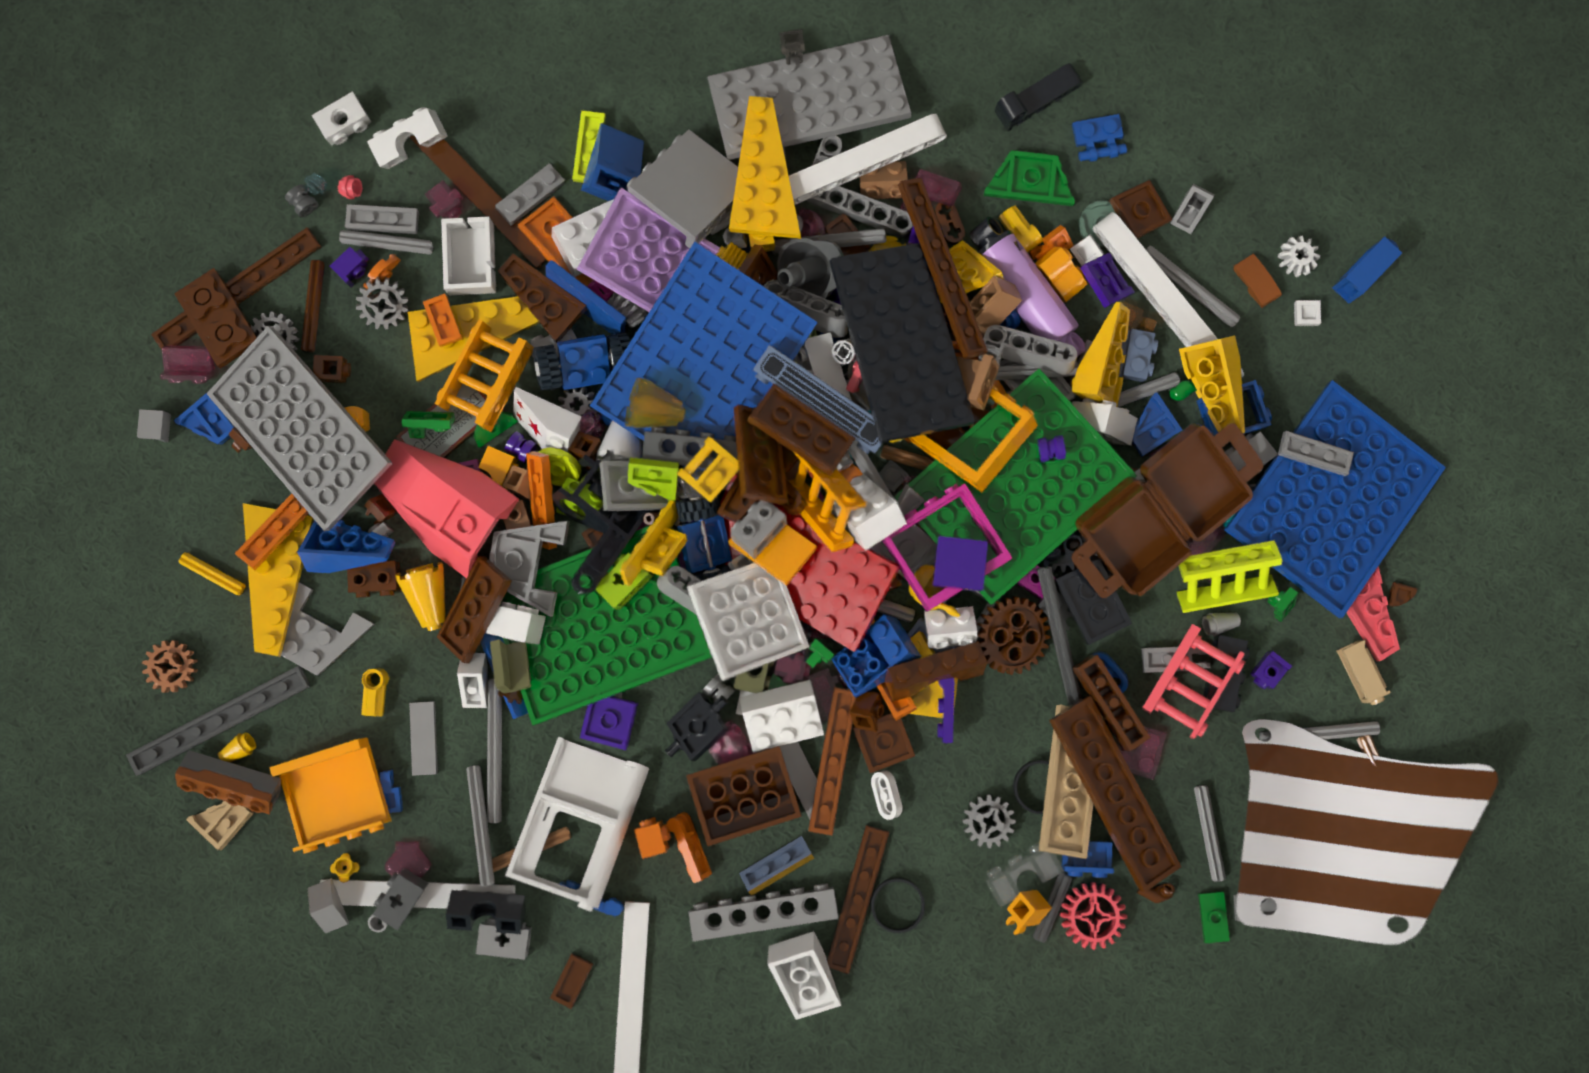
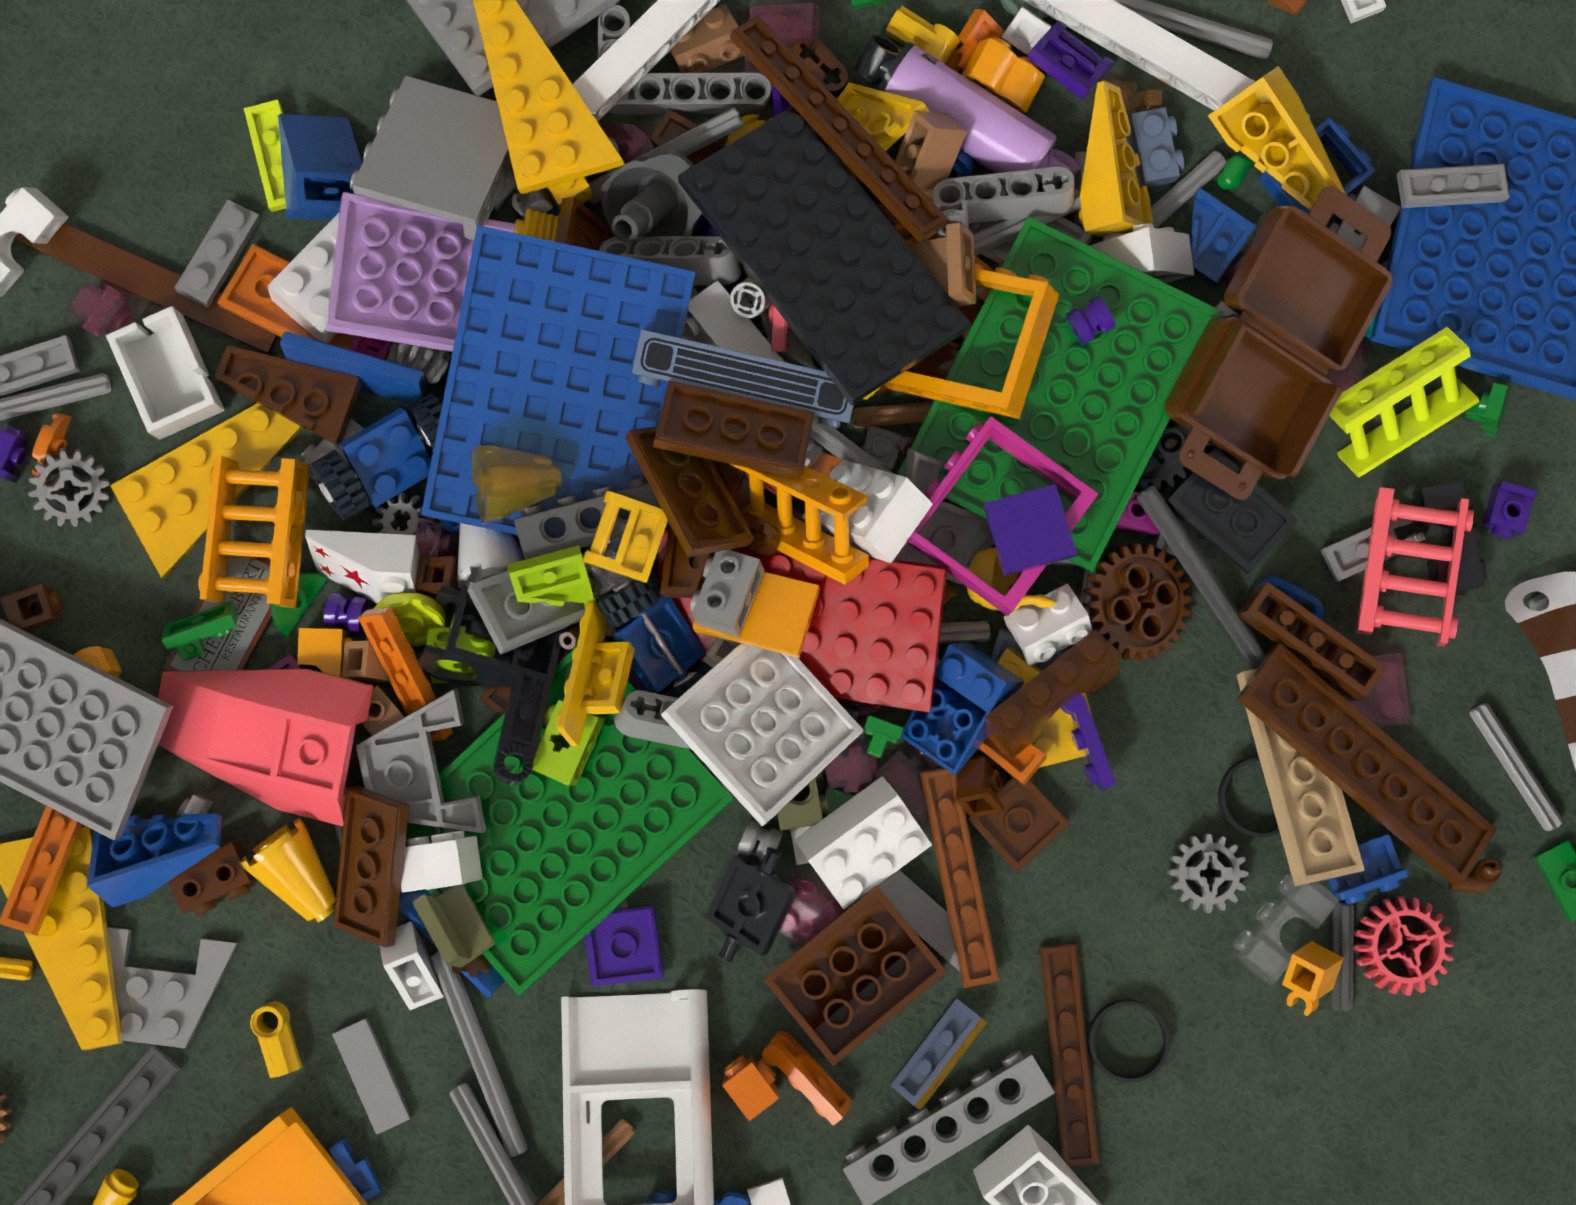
camera: 25 degrees left, 0 degrees up
(380, 508) = (181, 777): reddish brown tile -> none
(442, 320) = (164, 477): orange plate -> none
(886, 794) = (1052, 893): white plate -> none
(1218, 623) = (1414, 471): light grey cone -> none

